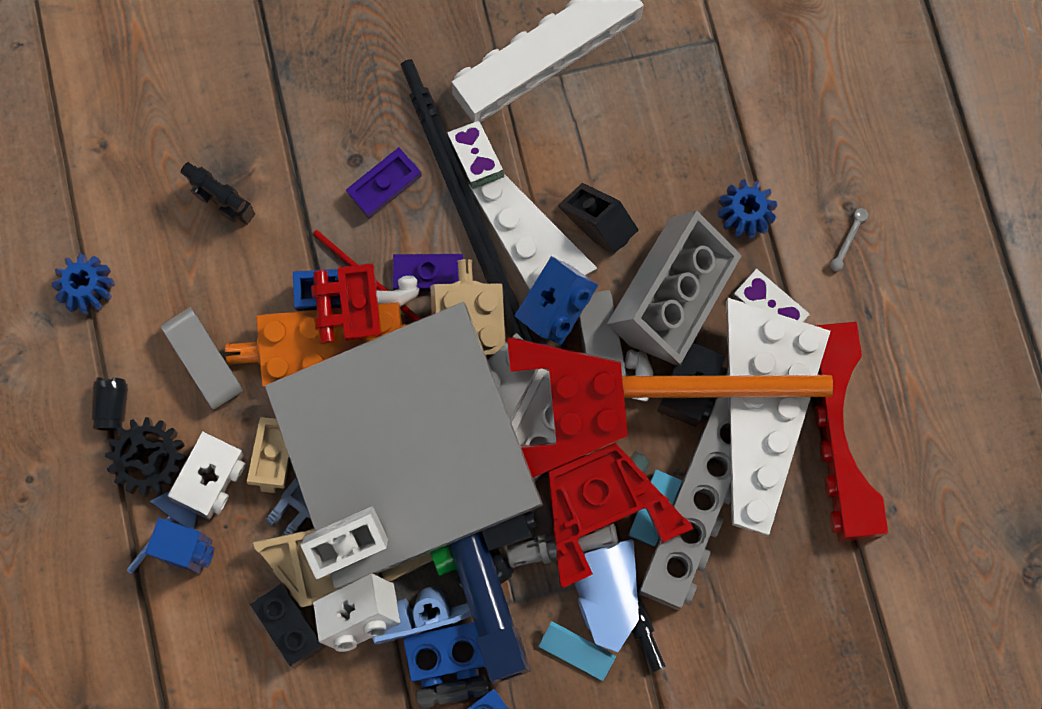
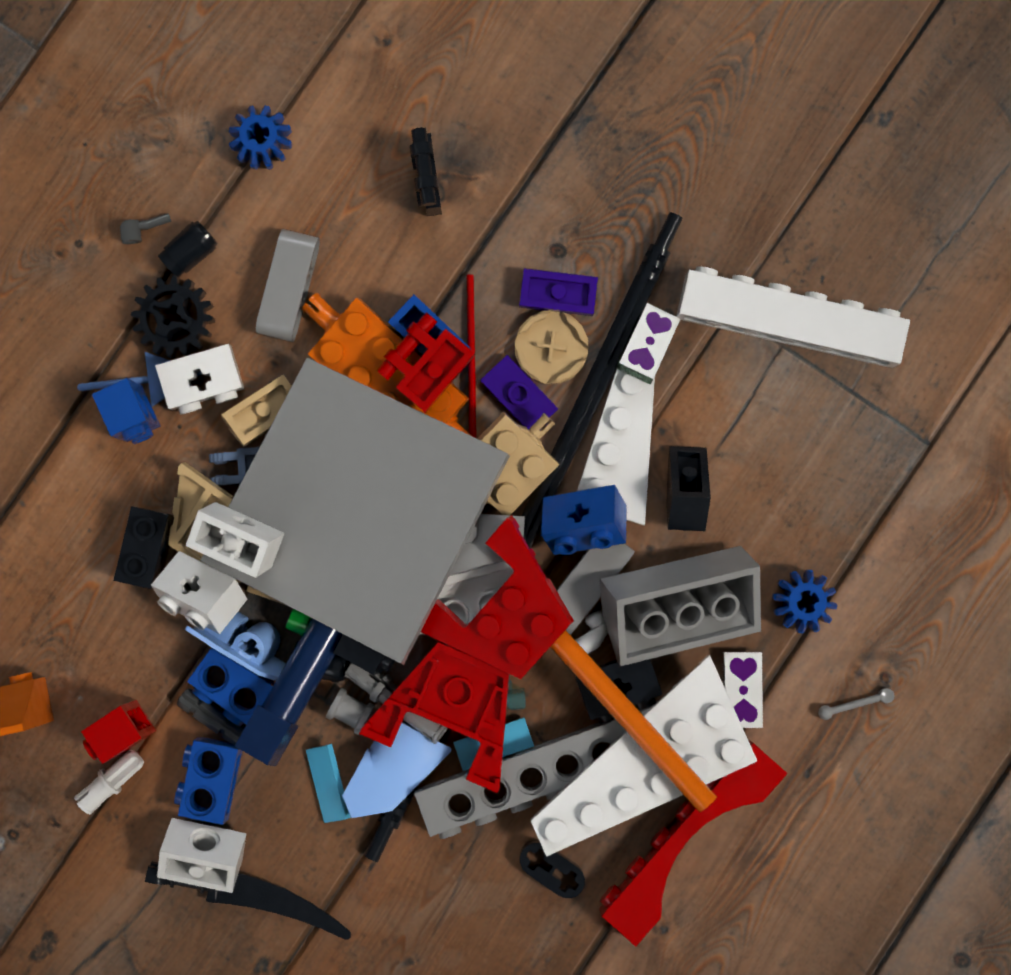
camera: 45 degrees right, 10 degrees up
(56, 430) = (131, 229): none -> dark grey hand
(406, 292) = (477, 393): white arm -> none
(416, 222) = (551, 347): none -> tan tile
(540, 586) = (349, 710): none -> light grey bush
(783, 555) = (546, 876): none -> black beam

